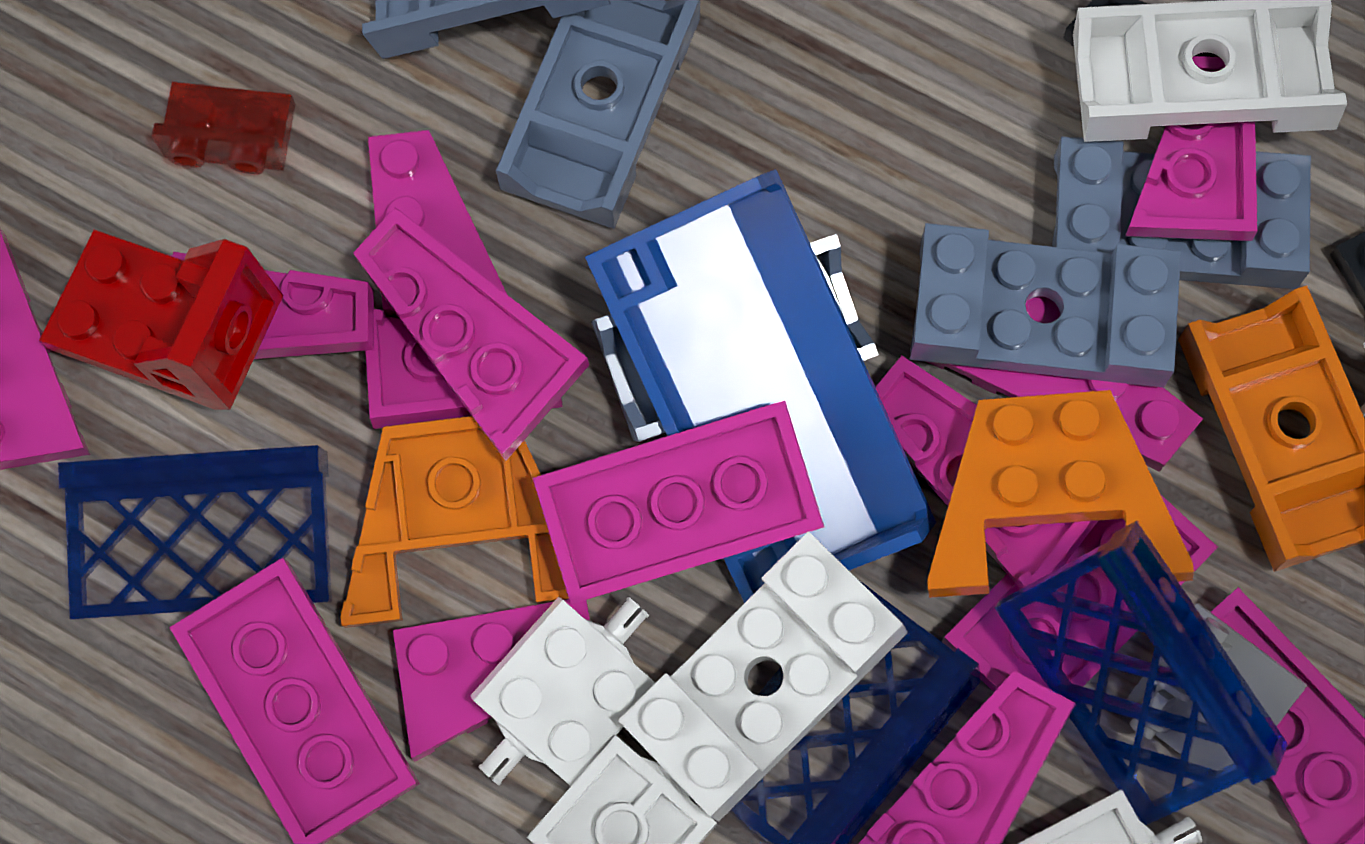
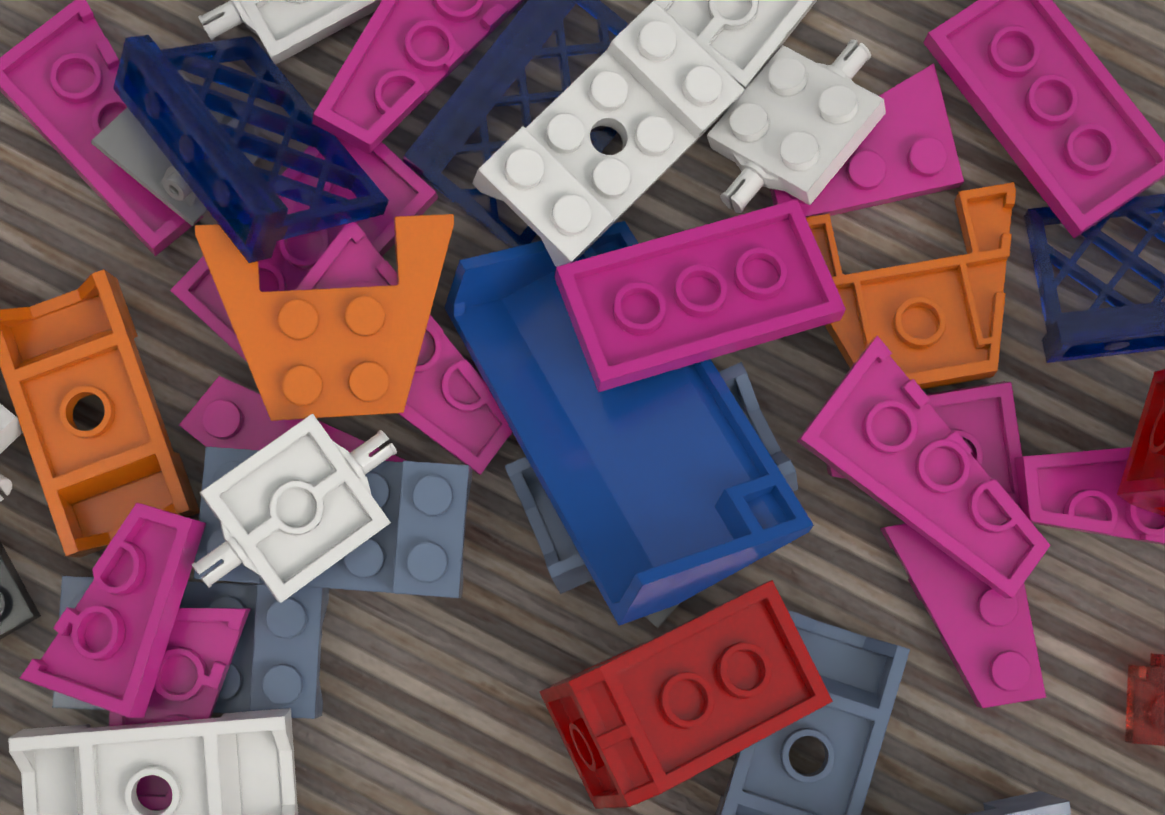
camera: 175 degrees right, 10 degrees up
(708, 121) = (686, 699): none -> red bracket
(1084, 299) = (295, 508): none -> white plate
(1245, 213) = (121, 627): none -> dark pink wing

